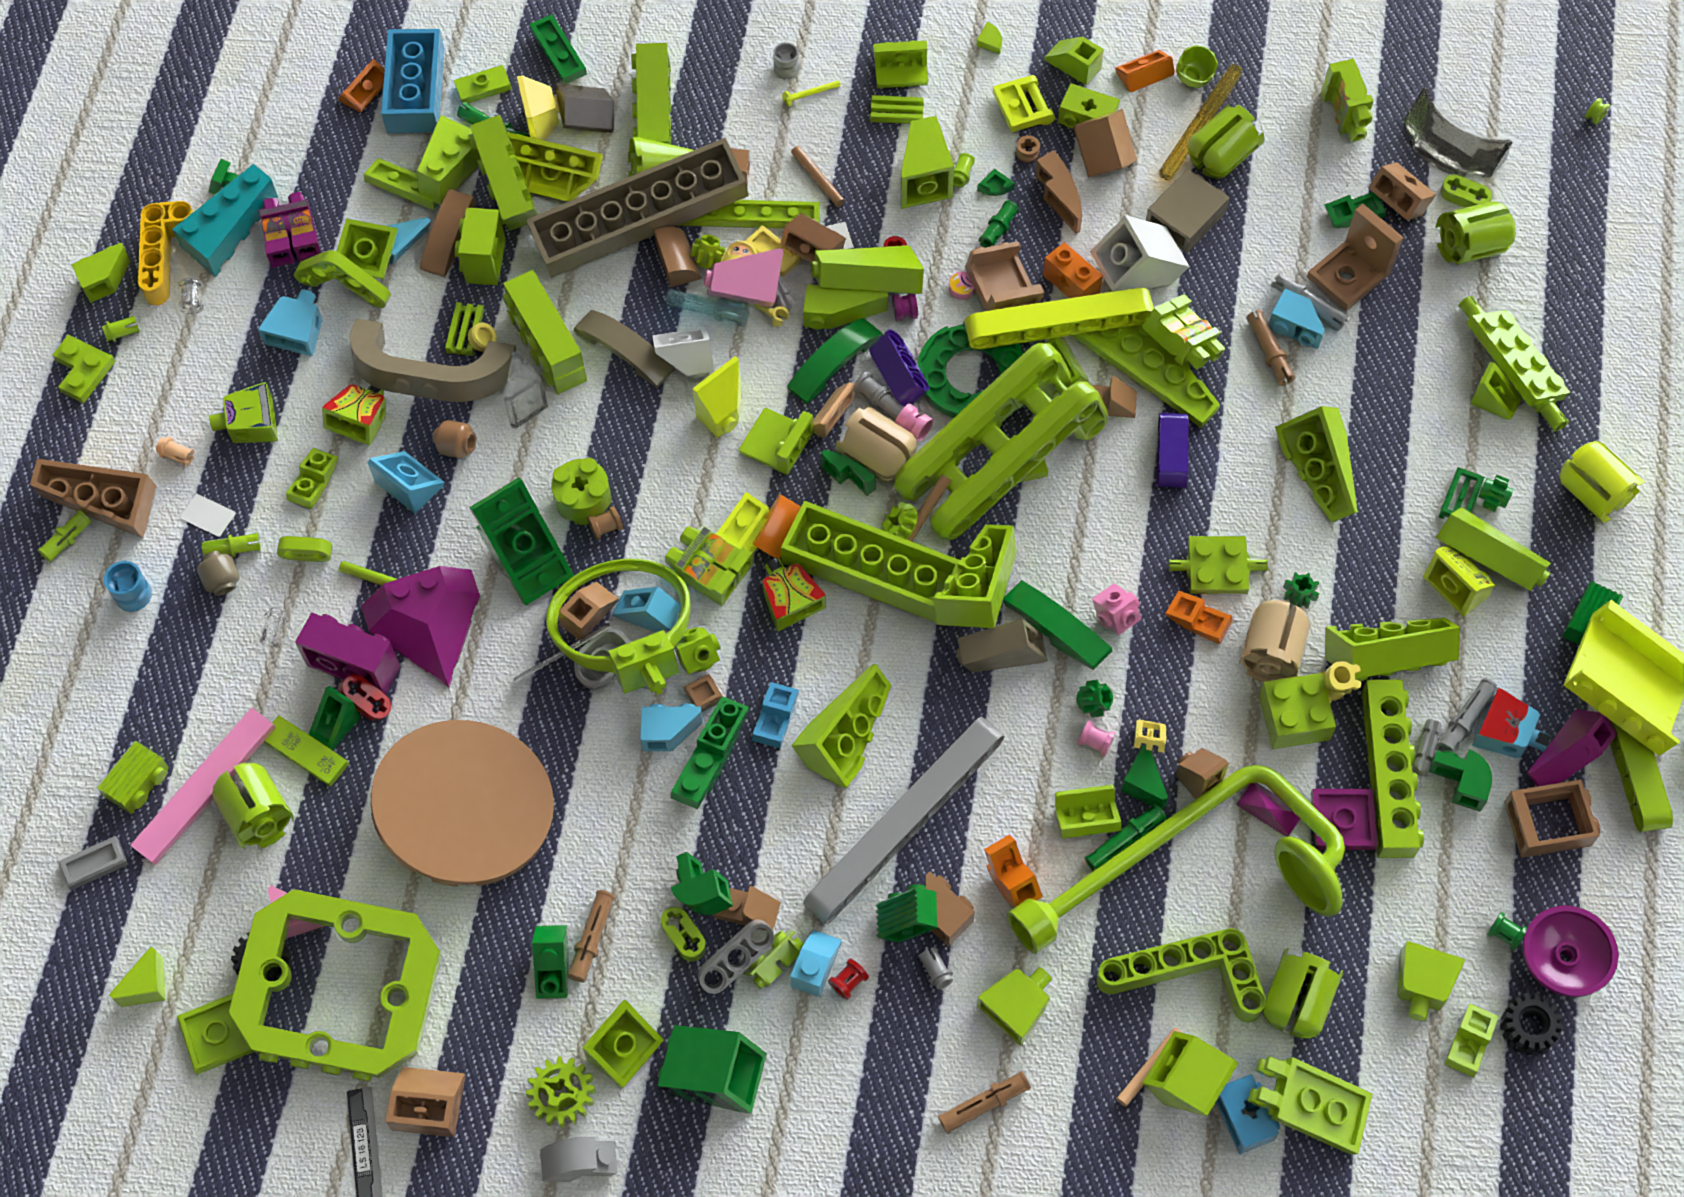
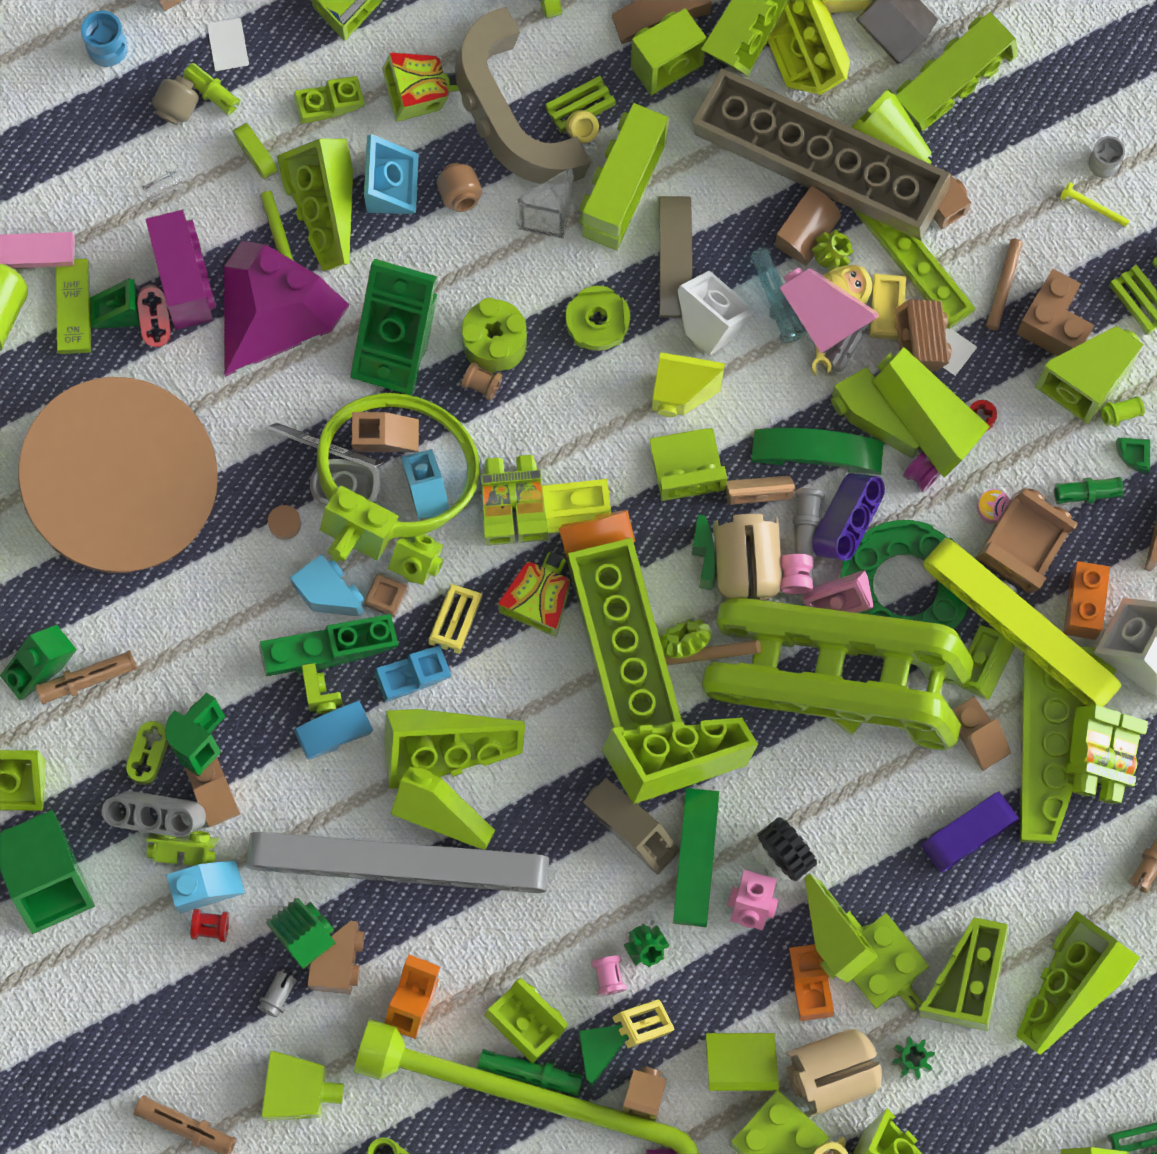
camera: 50 degrees right, 10 degrees up
(377, 528) = (321, 185): none -> lime wedge
(592, 721) = (284, 522): none -> medium nougat tile
(630, 436) = (609, 305): none -> lime plate
(732, 785) = (316, 685): none -> lime bracket
(771, 674) = (447, 641): none -> light yellow tile
(773, 795) = (332, 730): none -> dark azure slope
(867, 165) = (1048, 318): none -> medium nougat brick
(883, 764) = (436, 806): none -> lime slope
(949, 405) = (844, 594): none -> bright pink slope
(1098, 562) = (787, 849): none -> black tyre
(1189, 573) = (835, 935): none -> lime slope
(1224, 694) = (741, 1062): none -> lime tile
(1275, 515) = (969, 981): none -> lime wedge

